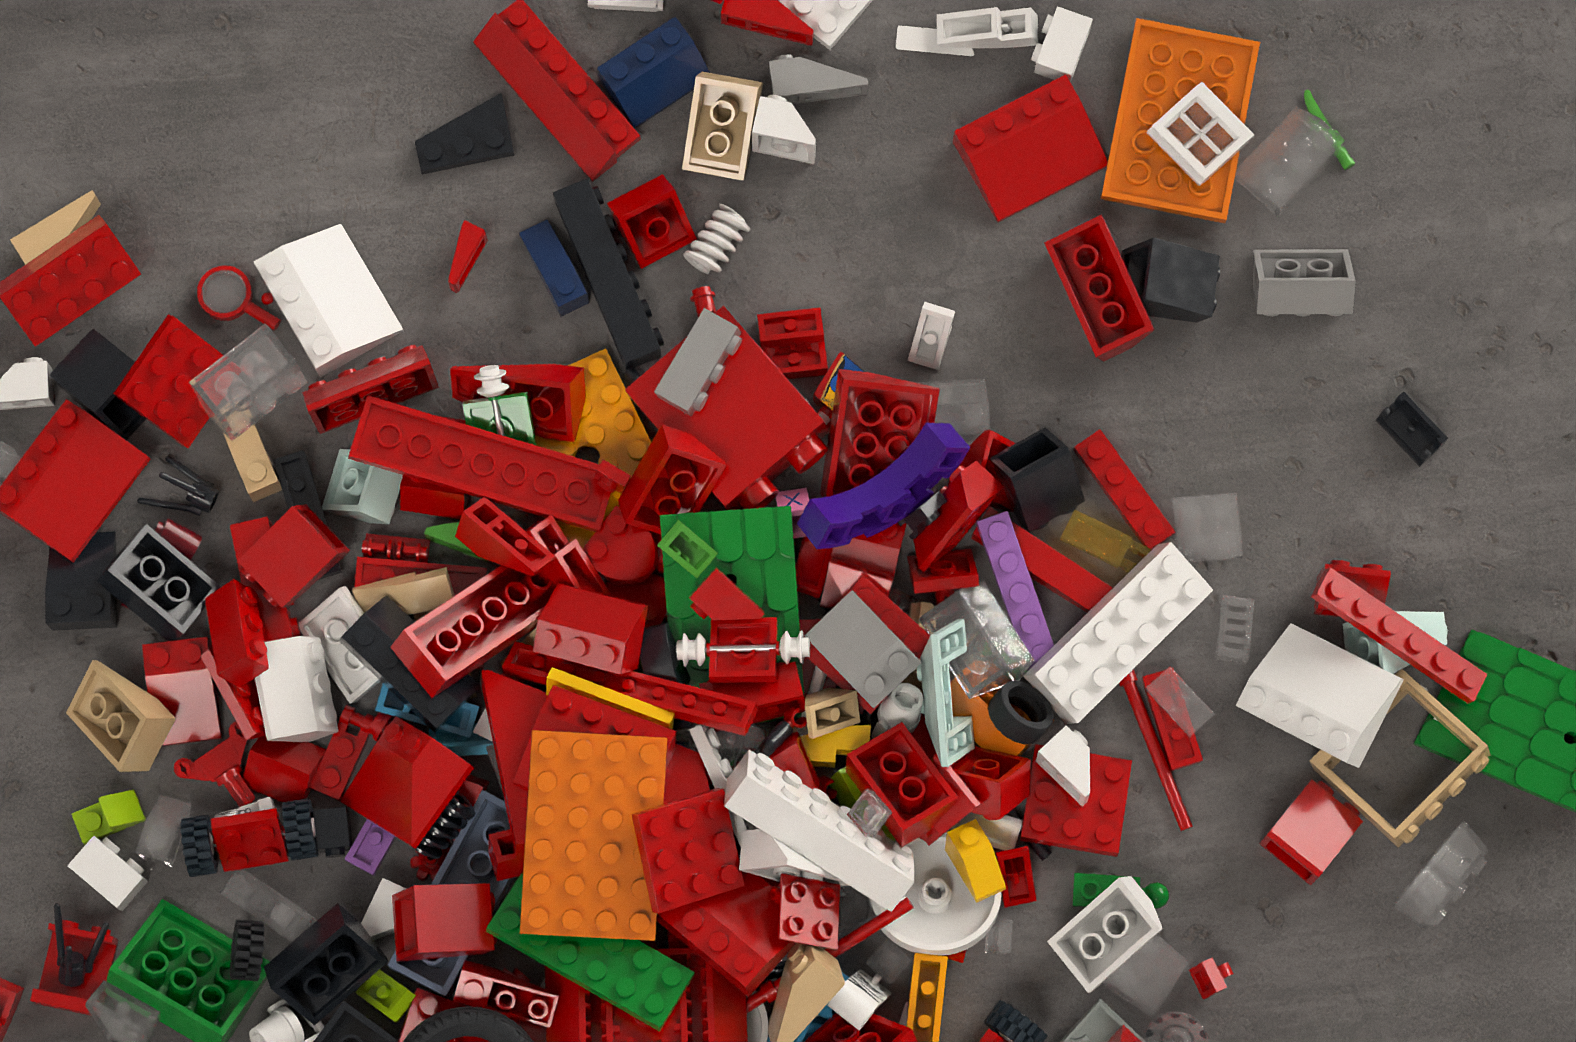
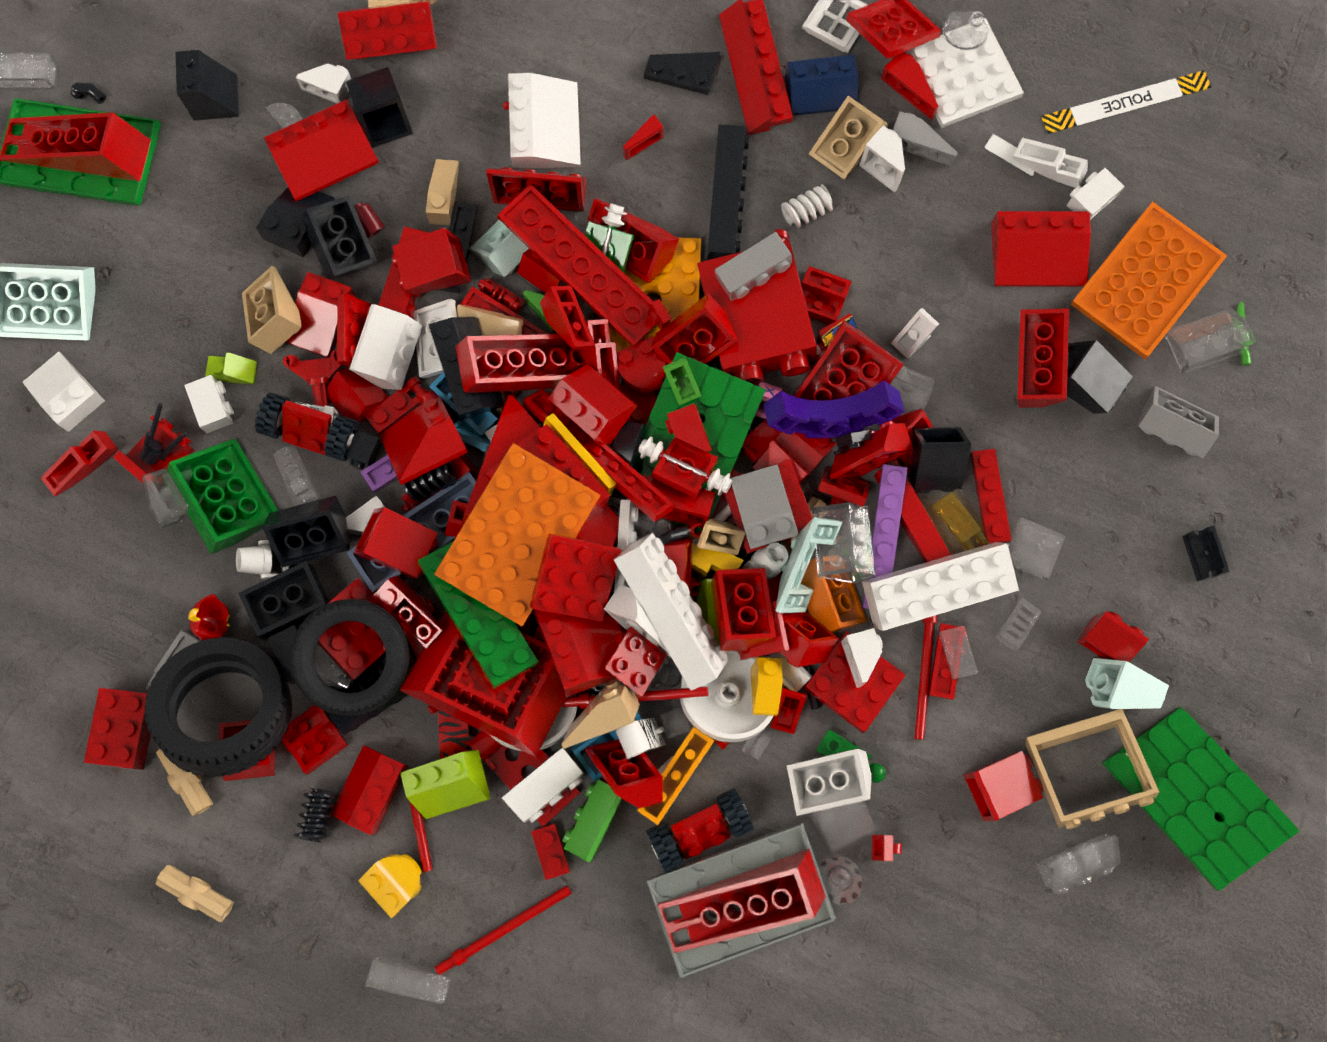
camera: 25 degrees right, 0 degrees up
(160, 381) = (420, 122): red plate -> none
(162, 832) = (252, 392): clear slope -> none
(201, 496) = (398, 202): black plant -> none
(227, 295) = (484, 90): piece -> none
(236, 633) = (366, 291): red brick -> none
(247, 950) = (263, 496): black tyre -> none
(248, 382) = (463, 144): clear slope -> none
(386, 995) = (338, 572): lime slope -> none
(554, 268) = (695, 174): dark blue slope -> none
(652, 221) = (772, 175): red slope -> none
(869, 813) = (710, 616): clear plate -> none
(1010, 722) = (837, 606): black tyre -> none
(1200, 133) = (1159, 293): white piece -> none
(1321, 694) = (1058, 697): white slope -> none
(1399, 635) = (1133, 685): plate -> none

